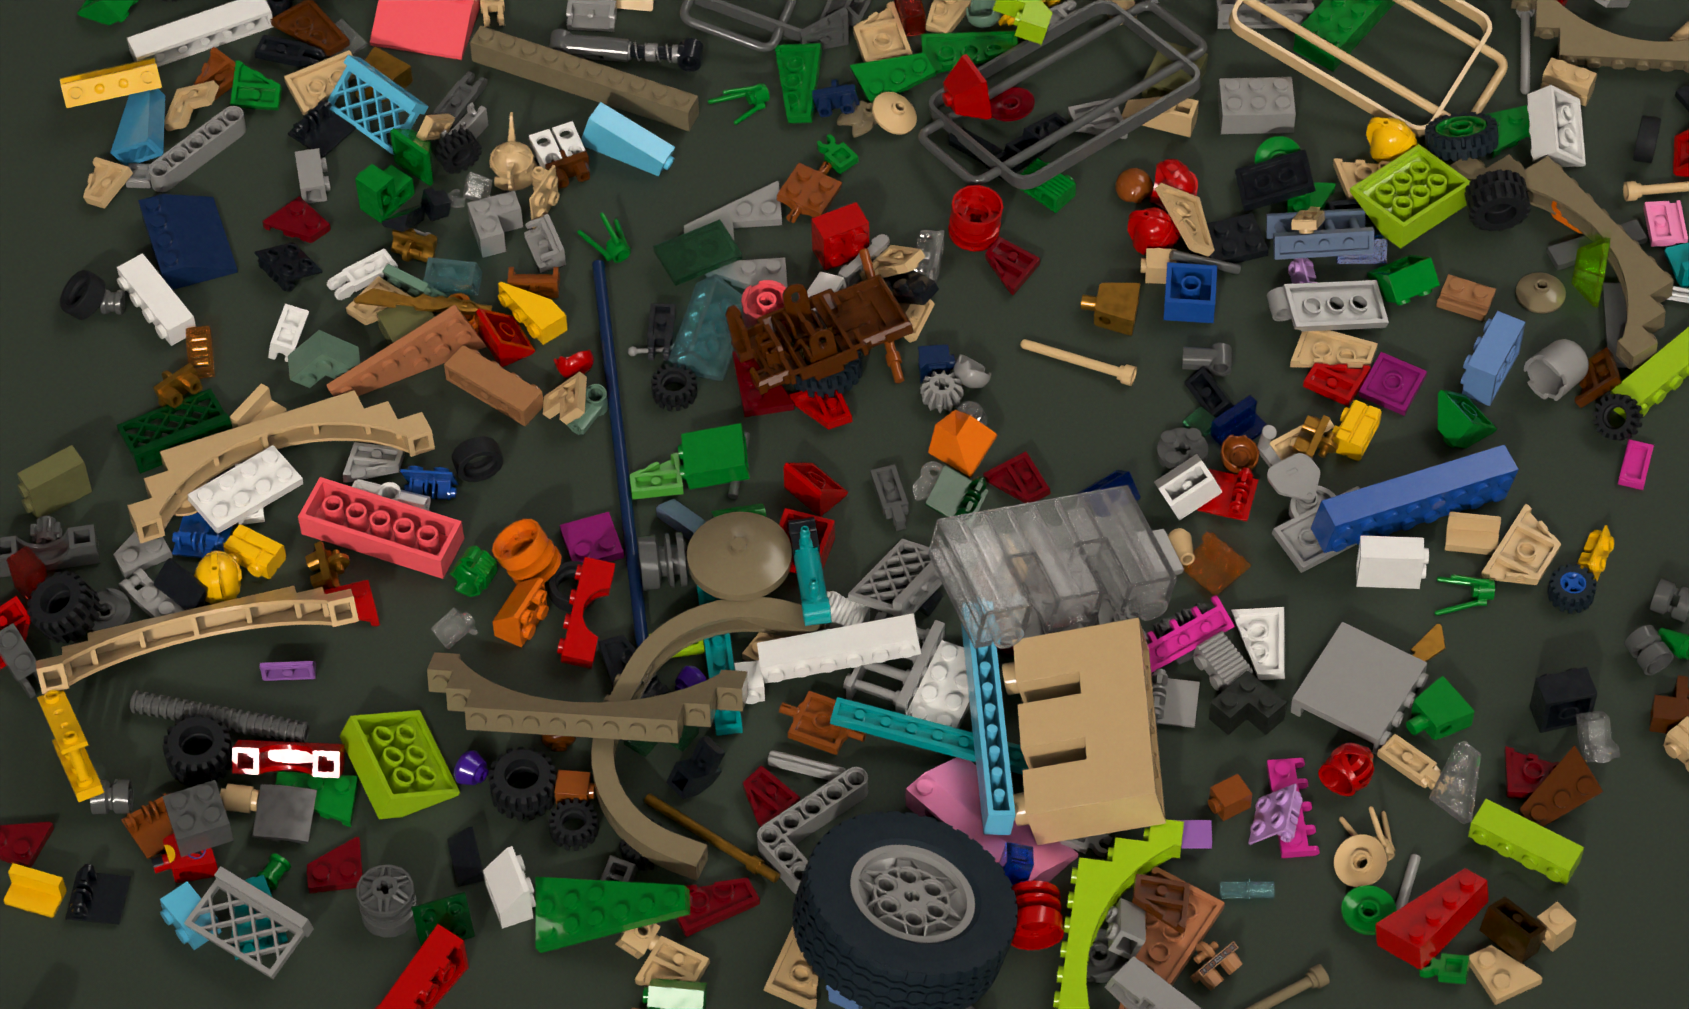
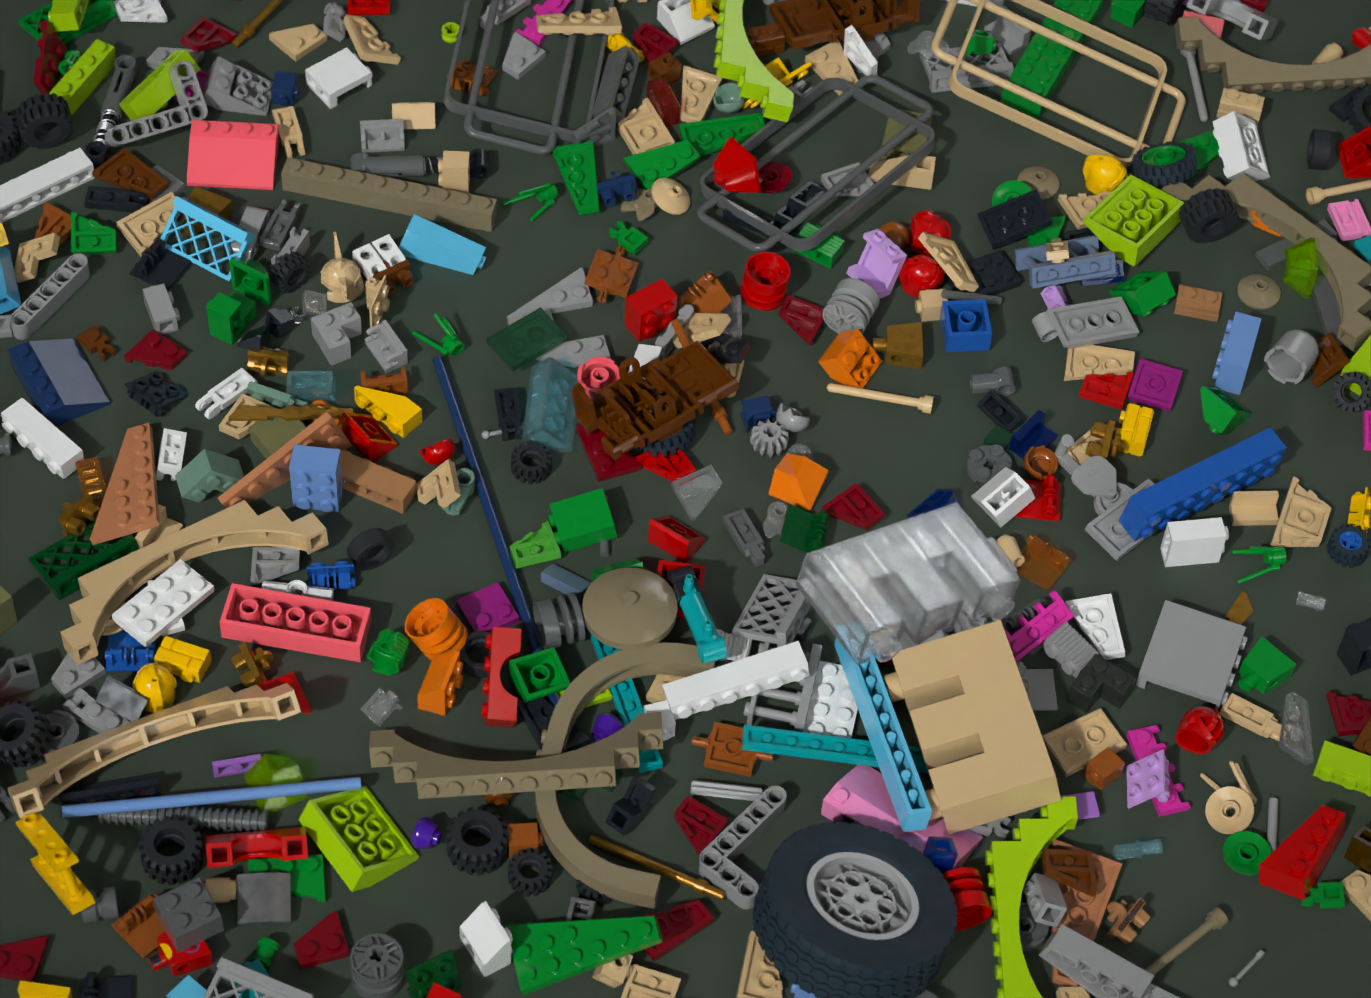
camera: 15 degrees left, 0 degrees up
(159, 681) = (120, 789): none -> black fence
(236, 202) = (96, 341): none -> reddish brown plate
(238, 368) = (132, 491): none -> nougat wing
(251, 700) = (211, 797): none -> medium blue piece
(324, 694) = (274, 771): none -> clear neon green slope
(431, 92) = (255, 221): none -> light grey beam
(433, 375) = (316, 478): none -> medium blue brick
(434, 125) = (265, 252): tan plate -> none
(465, 857) = (438, 916): black slope -> none
(627, 615) = (538, 675): none -> green slope
(659, 60) = (455, 171): none -> tan brick
(849, 439) = (697, 490): none -> clear wing
(906, 226) = (706, 295): none -> dark orange hinge
(1053, 315) = (850, 359): none -> orange slope
(1064, 258) = (850, 306): none -> light grey wheel
(1106, 215) = (878, 263): none -> lavender panel
(1213, 762) = (1082, 740): none -> tan tile
(1256, 105) = (982, 155): light grey brick -> none
(1319, 141) = (1041, 179): none -> dark tan dish
(1513, 644) = (1311, 601): none -> clear pin

